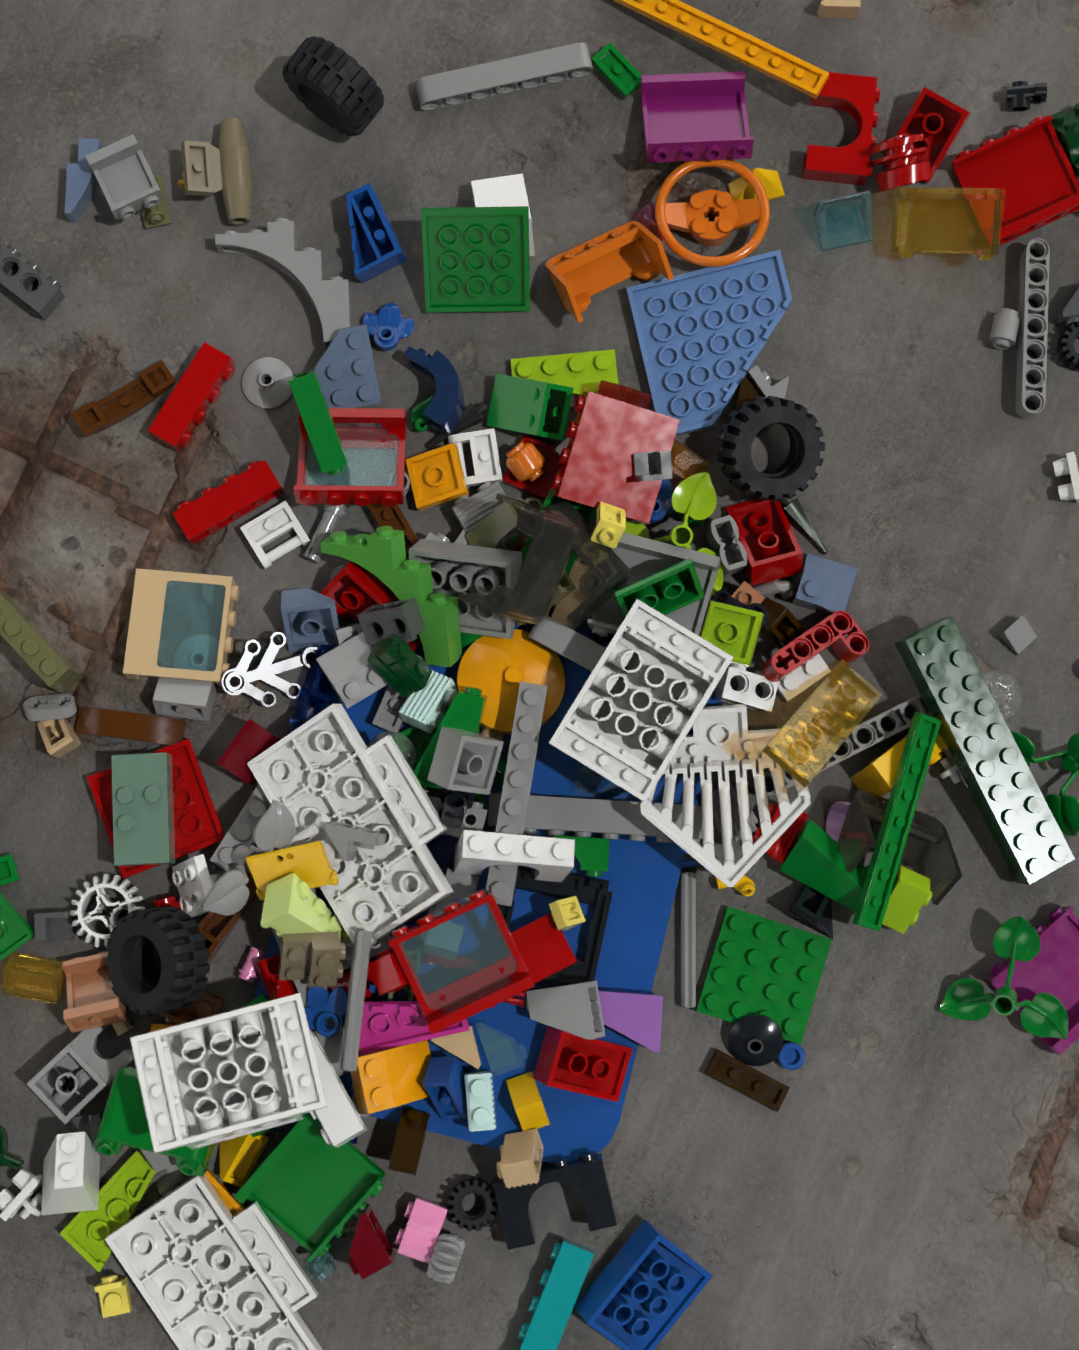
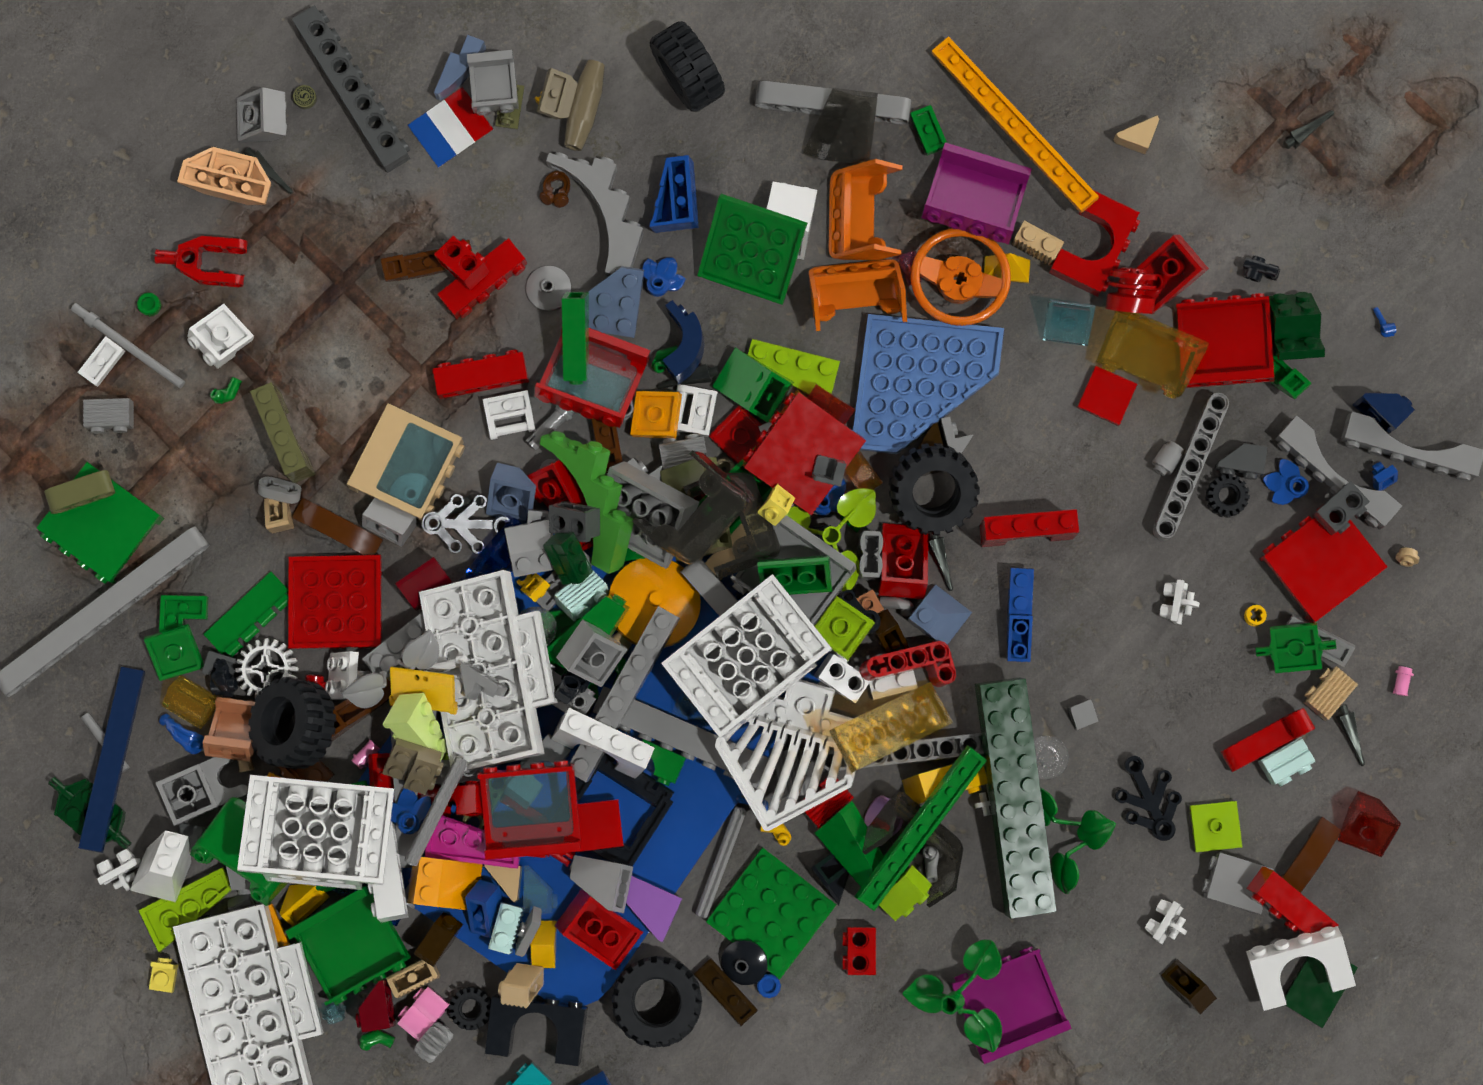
camera: 25 degrees right, 0 degrees up
(47, 1020) = (190, 740): none -> blue piece
(60, 860) = (242, 617): none -> green windscreen
(61, 942) = (221, 680): none -> black plate
(96, 247) = (449, 127): none -> sticker
(143, 809) = (323, 599): sand green brick -> none
(161, 387) = (459, 265): none -> red brick
(245, 282) = (560, 199): none -> reddish brown piece
(372, 711) = (534, 586): none -> yellow plate
(372, 1282) = (374, 1037): none -> green arm
(395, 1195) = (412, 978): none -> tan brick
(506, 1095) = (527, 931): none -> light grey plate
(525, 461) = (731, 428): orange head -> none
(528, 96) = (844, 127): none -> clear smoke wedge
(567, 913) = (629, 804): light yellow bracket -> none
(568, 184) = (853, 211): none -> orange windscreen
(714, 1128) = (689, 1001): none -> black tyre
(780, 149) = (1037, 243): none -> tan brick
(884, 976) = (867, 950): none -> red brick
(910, 552) = (1020, 614): none -> blue slope
(911, 441) = (1052, 524): none -> red arch
(914, 286) = (1107, 395): none -> red tile
(917, 854) = (931, 861): none -> light grey arm

